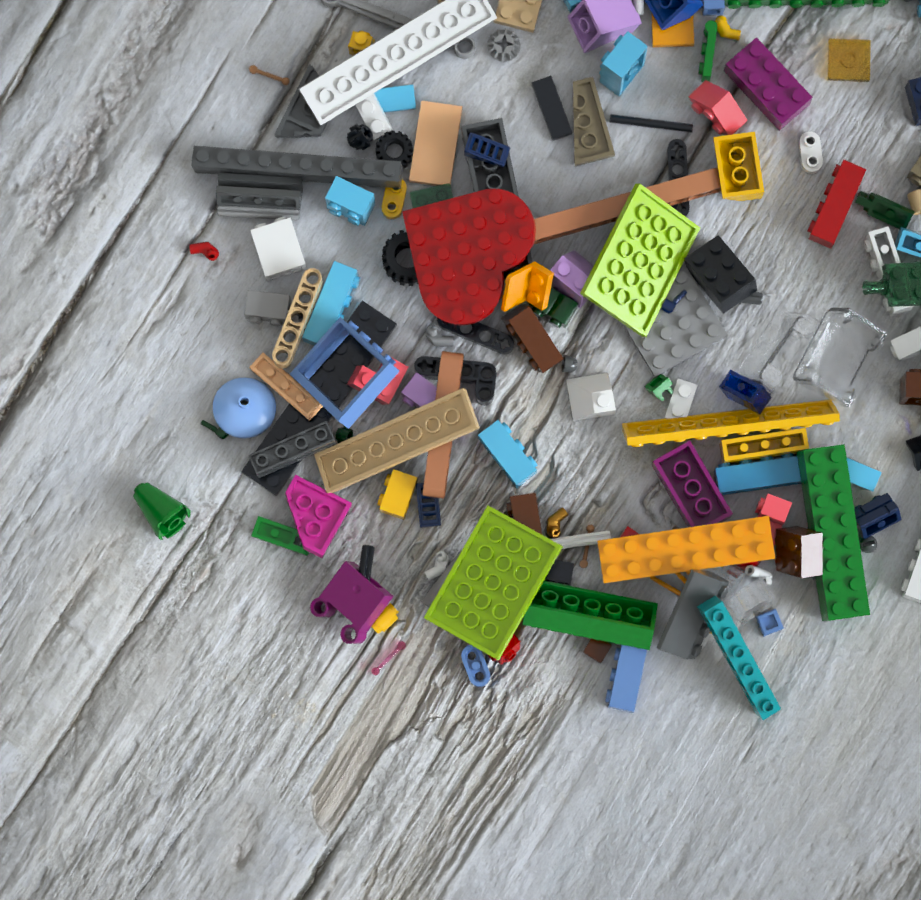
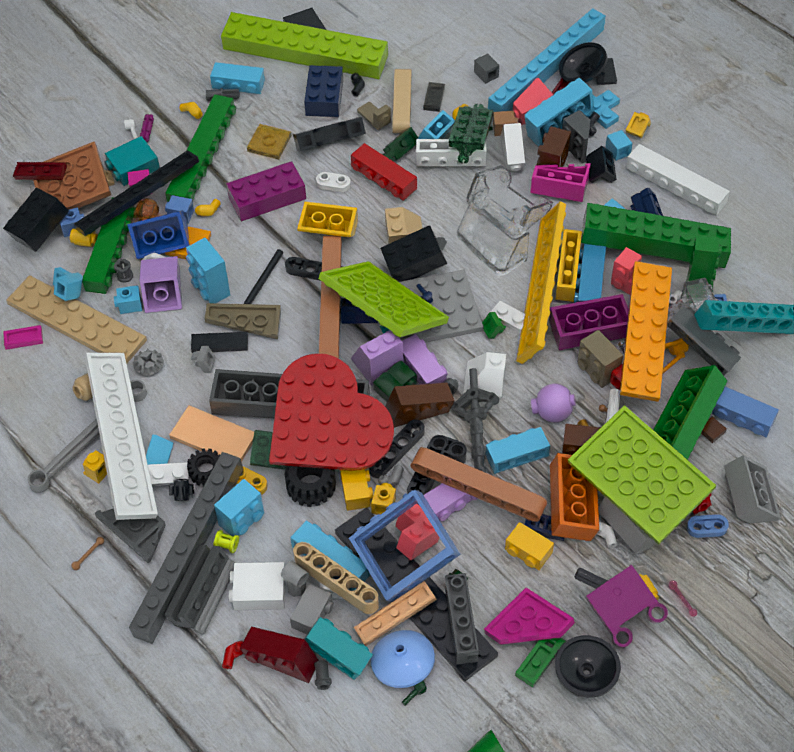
camera: 75 degrees left, 25 degrees down
(206, 339) = (322, 675): none -> dark grey pin
(212, 292) = (280, 652): none -> dark red wedge
(231, 343) = (338, 648): none -> teal brick
(270, 570) = (588, 654): none -> black dish
(289, 279) = (295, 578): none -> light grey piece
(314, 207) = (226, 541): none -> neon yellow bush
(396, 441) = (483, 524): tan plate -> none
(405, 343) = (383, 497): none -> yellow brick
(410, 308) = (356, 489): none -> yellow brick
(451, 525) = (572, 502): none -> orange brick
(489, 143) = (235, 397): dark blue slope -> none
(521, 101) = (204, 359): none -> light grey tile
(528, 284) = (377, 379): light orange bracket -> none
(529, 703) = (751, 491): none -> light grey slope
(536, 399) = (475, 415): none -> dark grey bar
(574, 475) = (553, 403): none -> lavender brick
(582, 329) = (422, 362): none -> lavender brick
(642, 509) = (598, 358): none -> dark tan brick
(708, 50) = (221, 222): green plate -> none
(718, 107) = (270, 222): coral brick -> none
(745, 392) = (519, 263): clear blue brick -> none
(763, 252) = (401, 223): none -> tan slope
(789, 591) = (704, 259): none -> green brick
(799, 551) = (670, 253): reddish brown brick -> none
(886, 409) = (561, 182): none -> dark pink wedge
(888, 141) = (329, 133): none -> black arch

